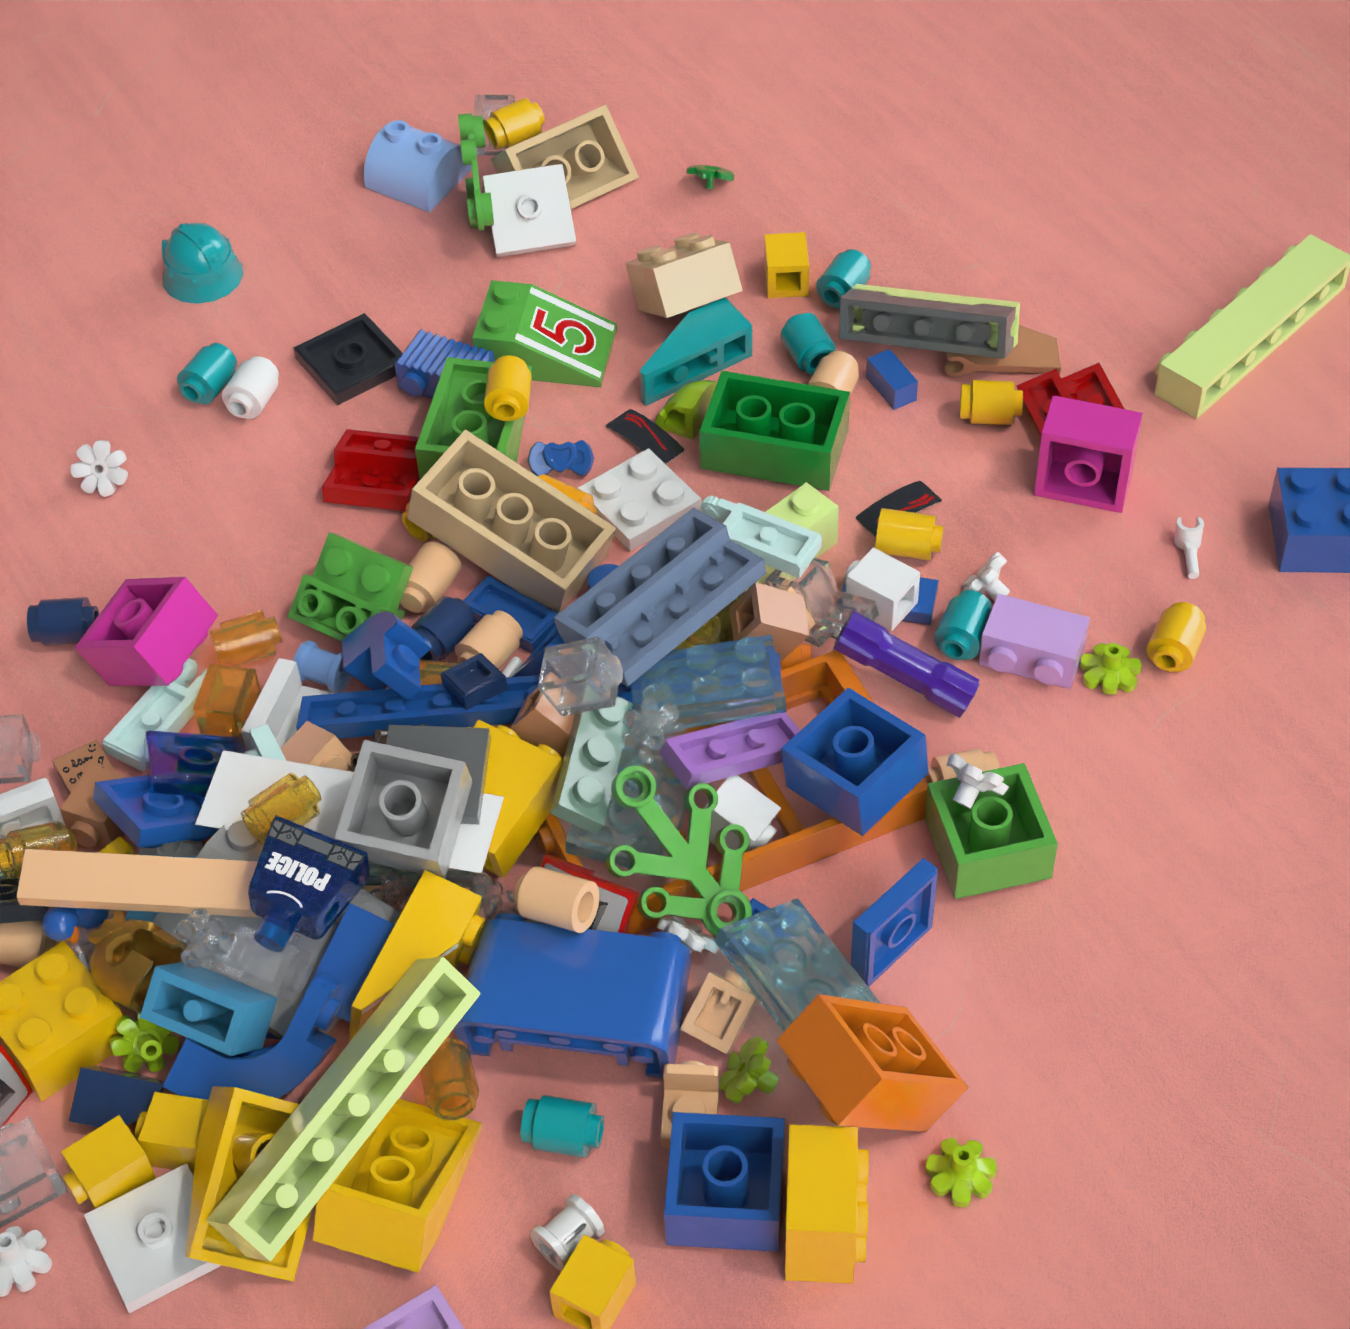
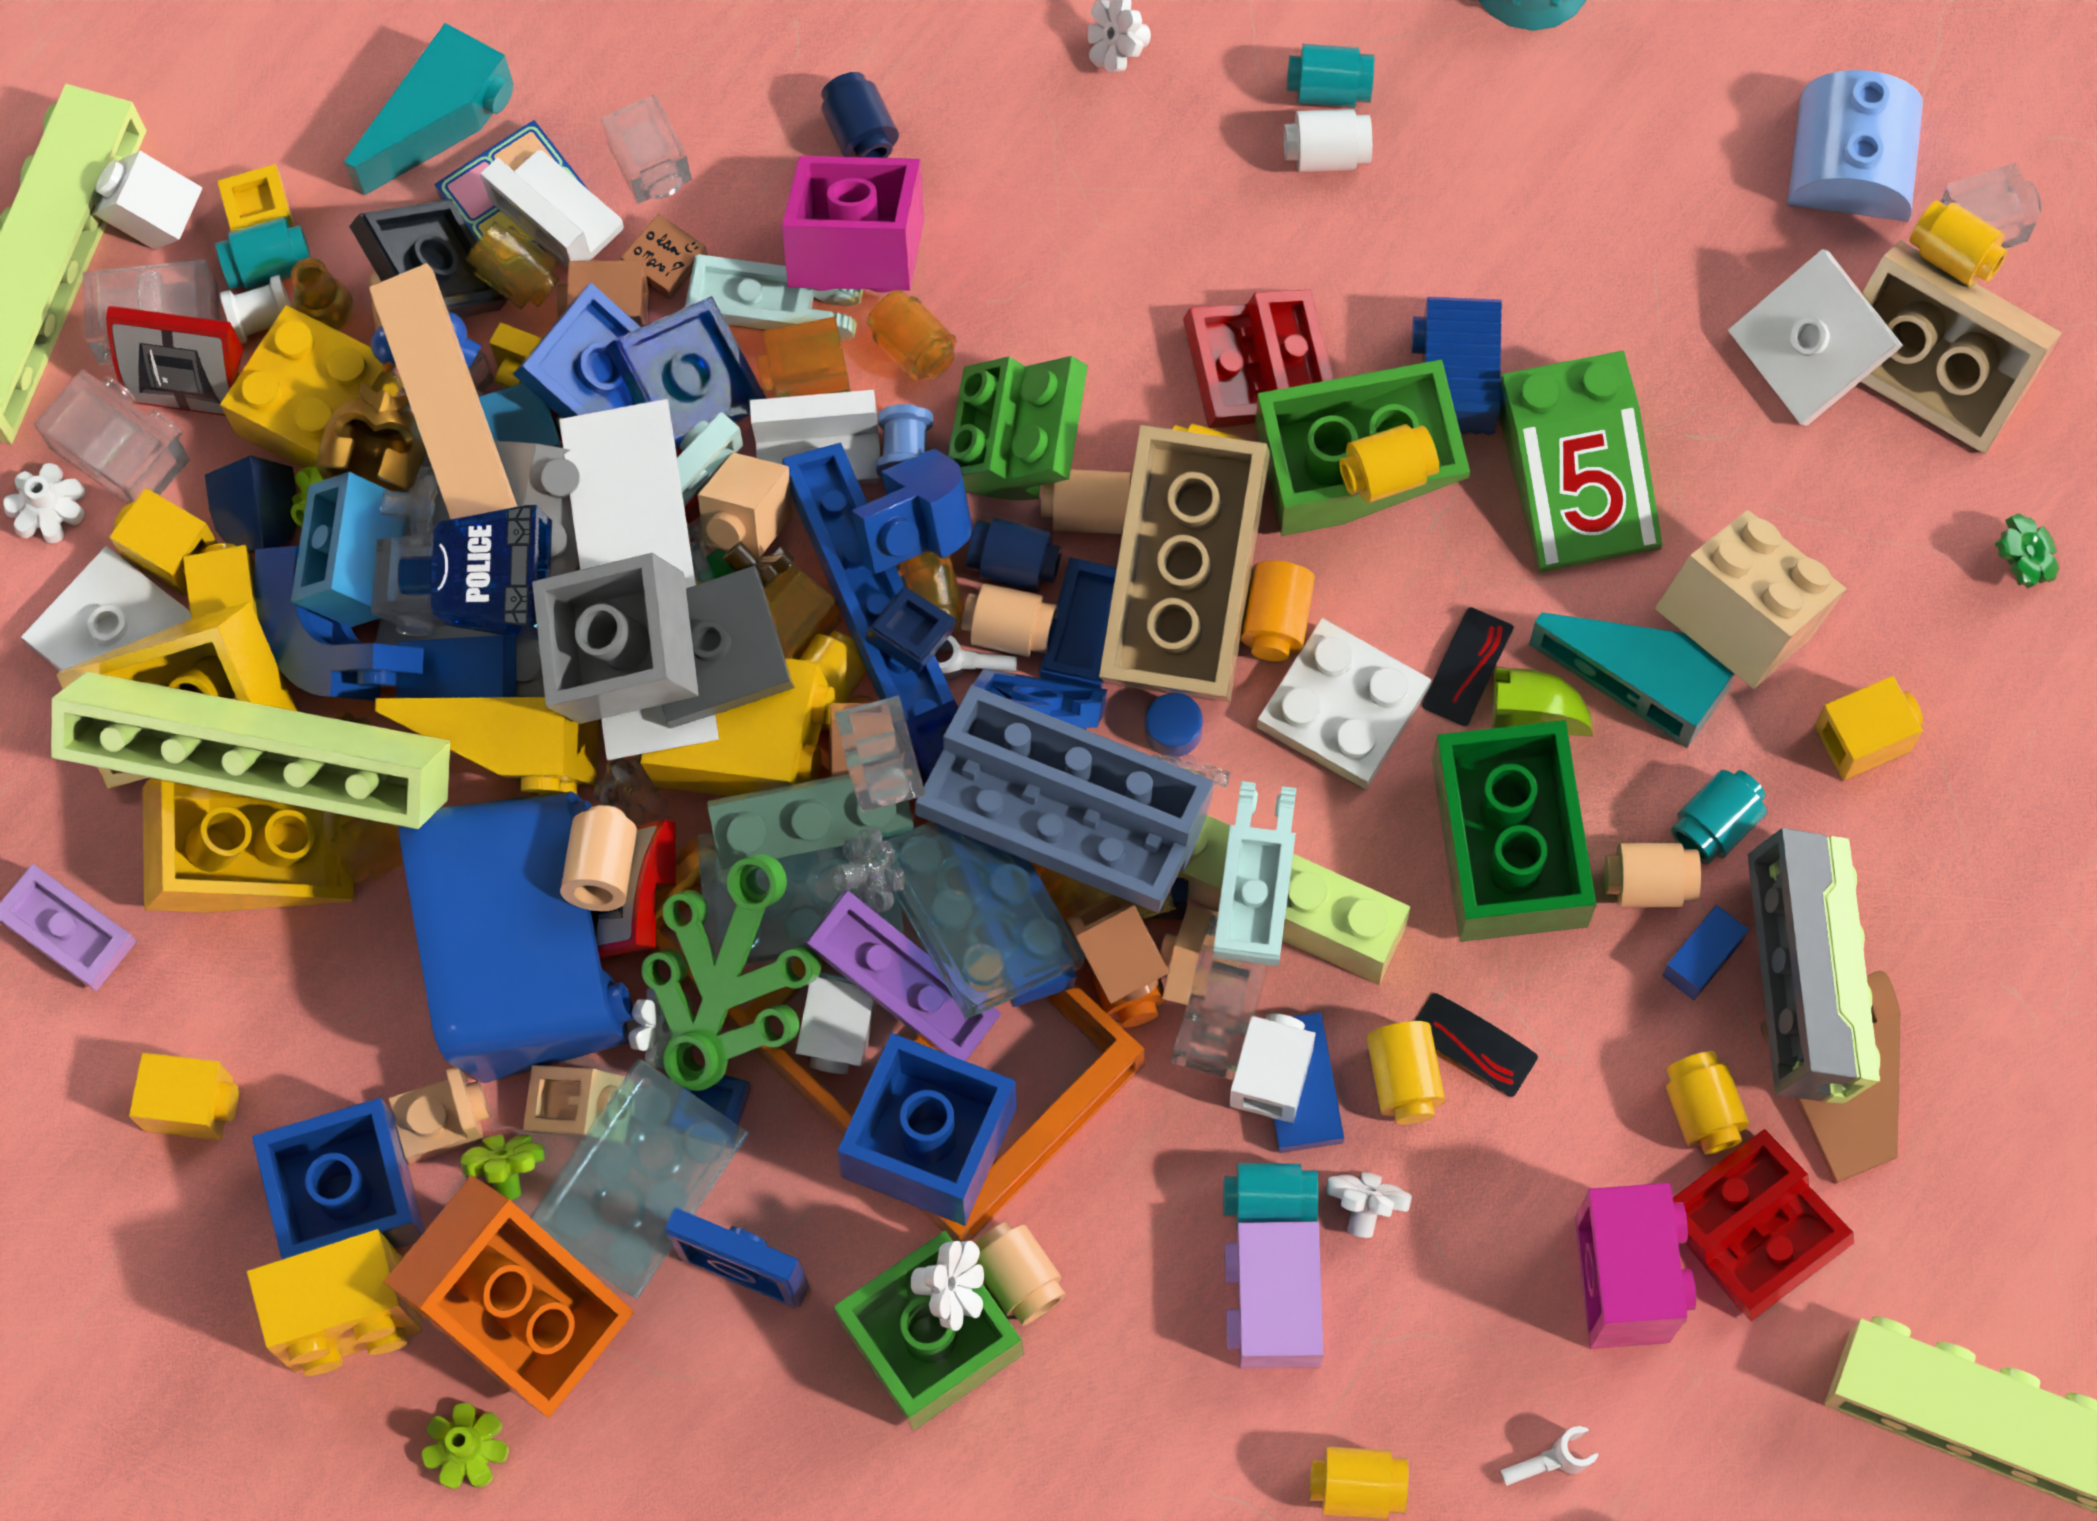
camera: 70 degrees right, 20 degrees up
(289, 798) = (588, 503): clear yellow brick -> none
(349, 358) = (1448, 233): black tile -> none
(479, 204) = (1839, 232): bright green plant -> none
(550, 456) = (1368, 575): blue piece -> none
(562, 1125) = (365, 985): teal brick -> none
(563, 1233) = (239, 1043): white bush -> none
(841, 275) = (1876, 817): teal brick -> none
(936, 680) = (1153, 1192): dark purple axle -> none
(1111, 668) = (1283, 1423): lime plant -> none

